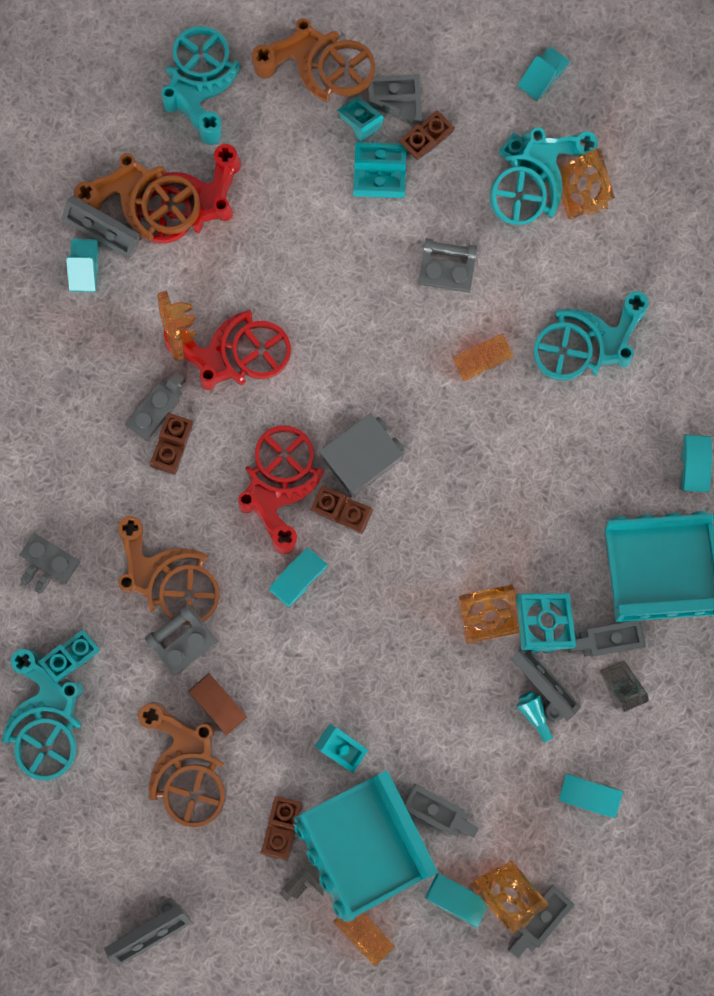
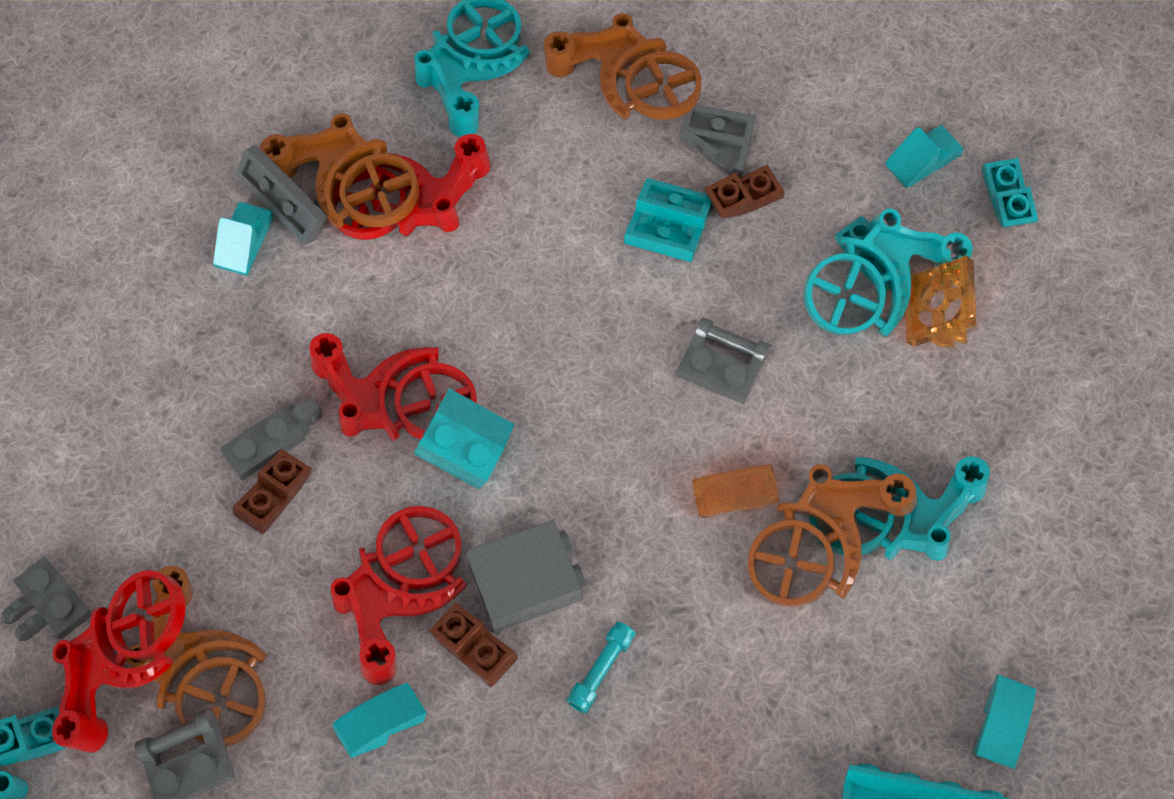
camera: 20 degrees right, 15 degrees down
(98, 596) = (92, 661): none -> red piece
(176, 323) = (325, 330): clear orange piece -> none
(292, 372) = (464, 439): none -> teal slope
(362, 118) = (665, 151): teal slope -> none
(424, 522) = (583, 695): none -> teal bar
(553, 350) = (835, 505): none -> dark orange piece
(609, 88) = (1009, 196): none -> teal slope

